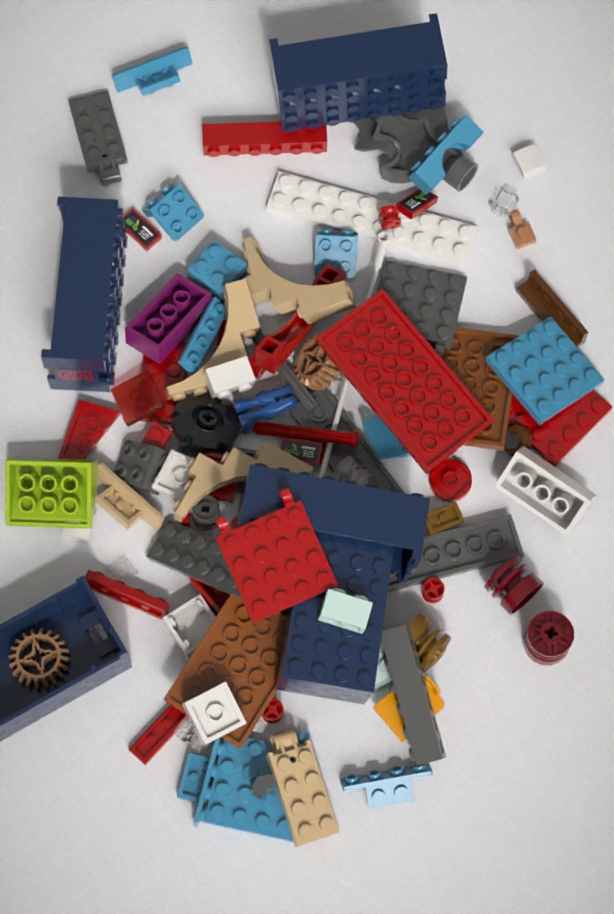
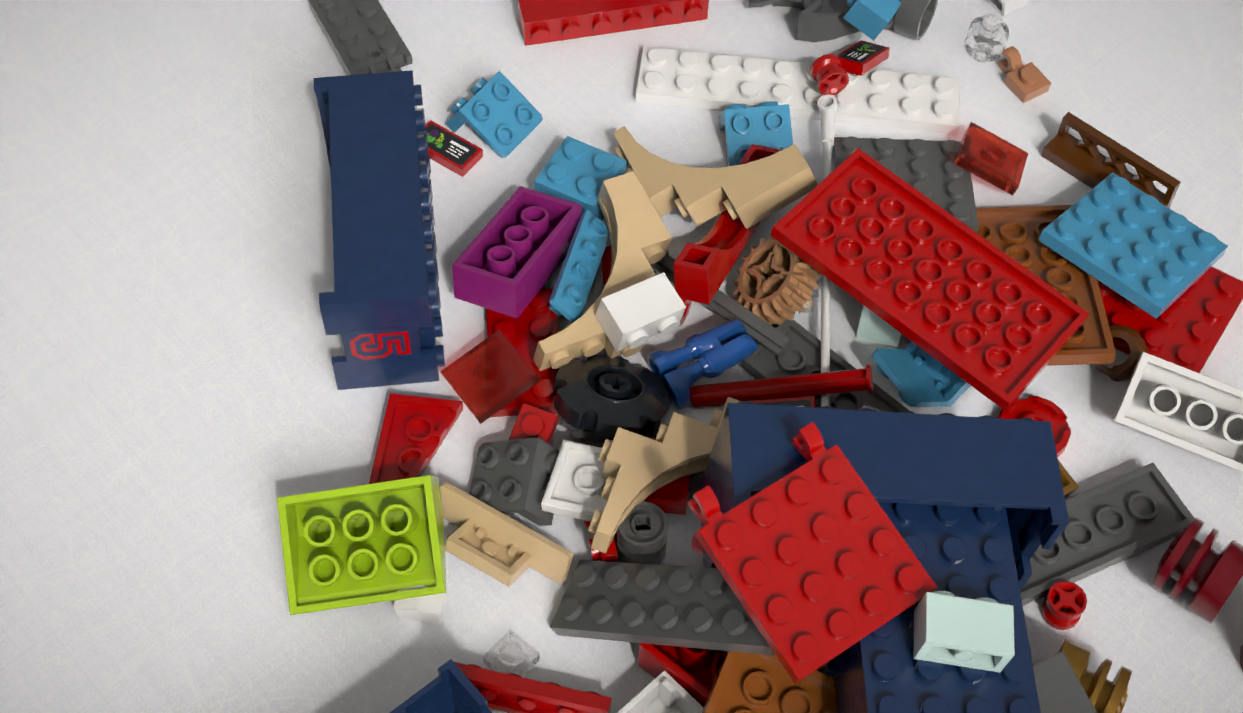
camera: 10 degrees left, 15 degrees down
(478, 293) = (991, 158): none -> clear red tile

